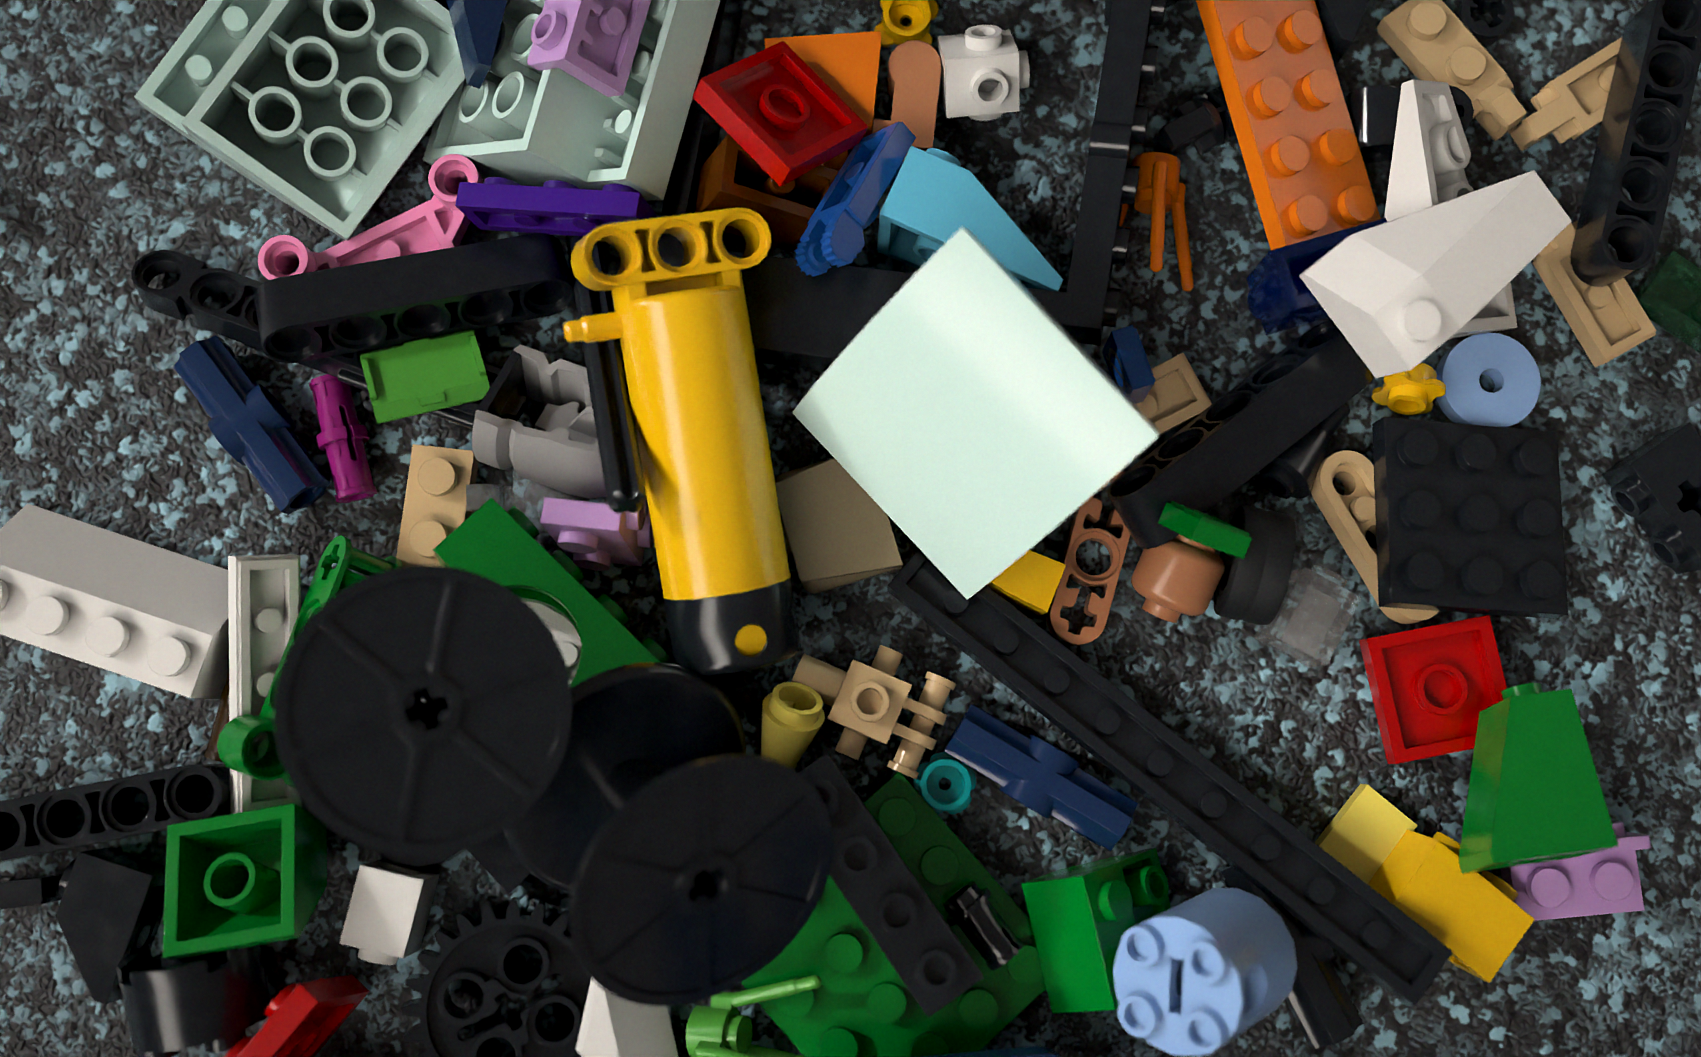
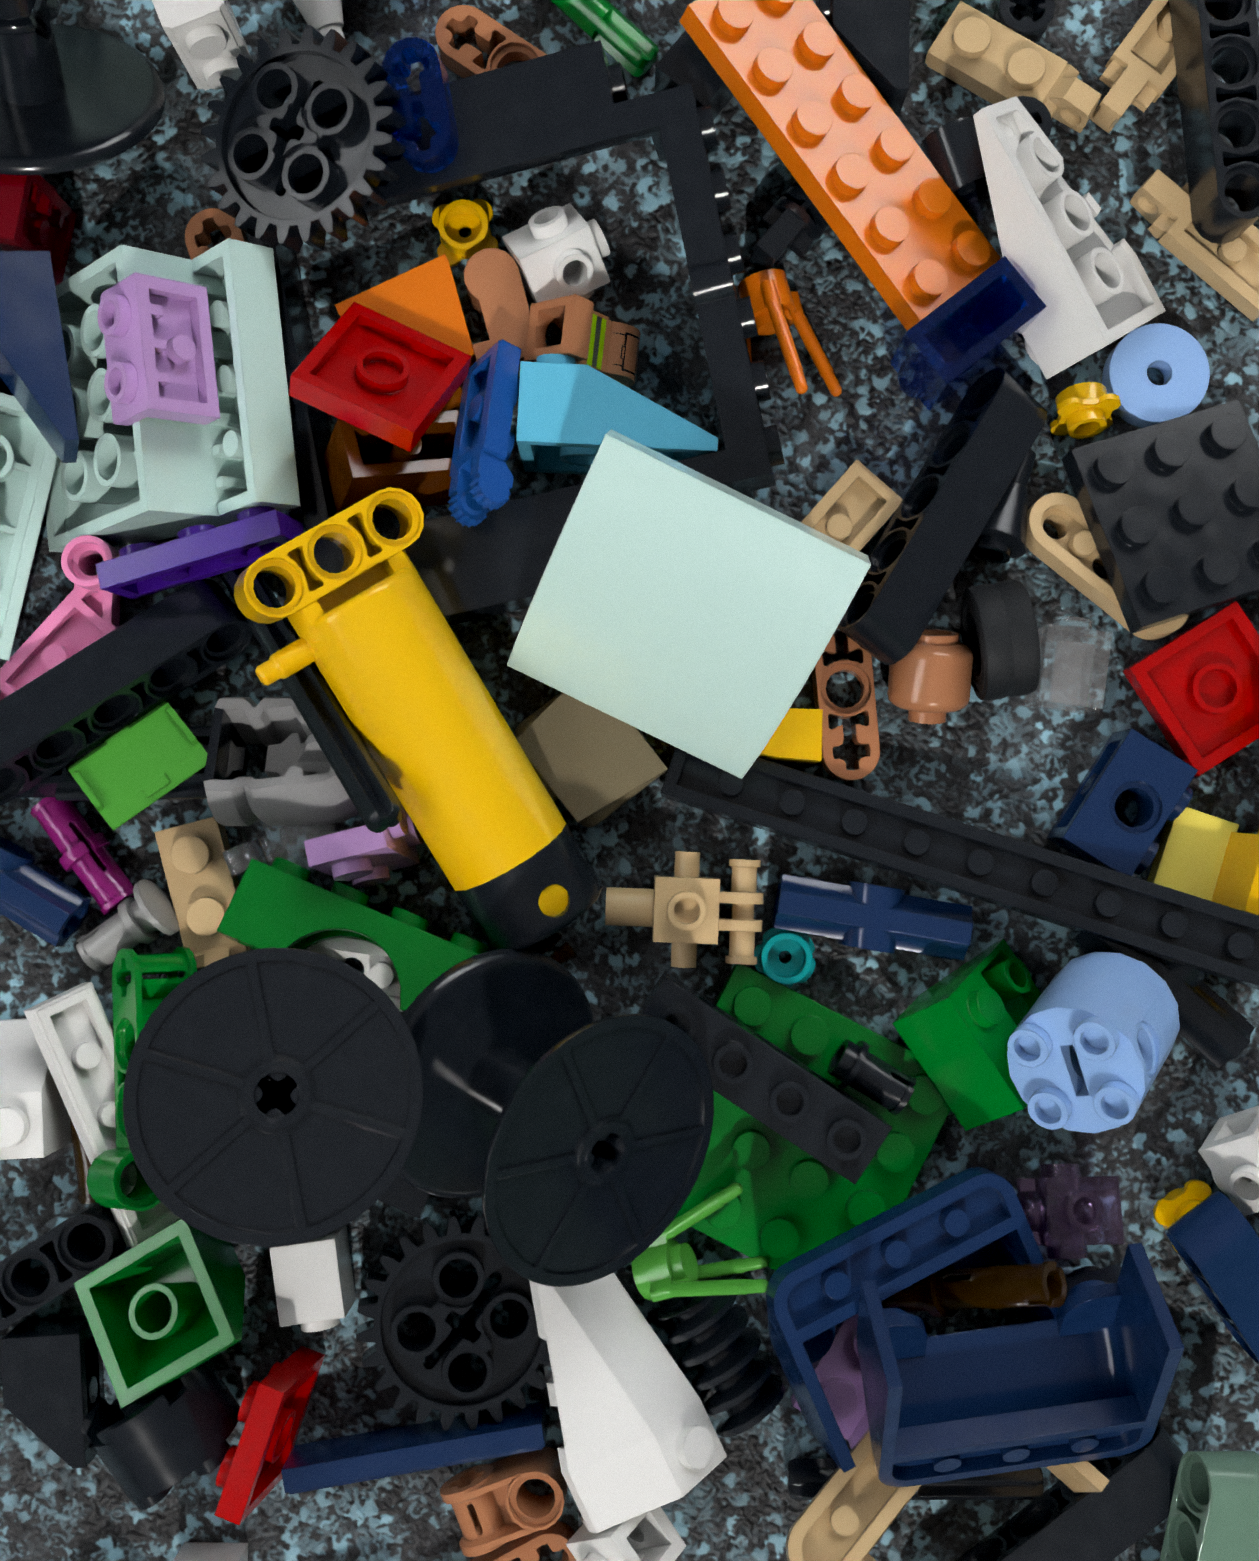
camera: 20 degrees left, 5 degrees up
(360, 519) = (135, 923): none -> light grey pin
(790, 722) = (619, 961): light yellow cone -> none
(978, 148) = (585, 336): none -> nougat leg
(1128, 363) = (810, 494): blue tile -> none
(1205, 529) = (942, 627): green tile -> none
(1347, 742) = (1151, 776): none -> dark blue brick
(1428, 273) = (1067, 295): white wedge -> none

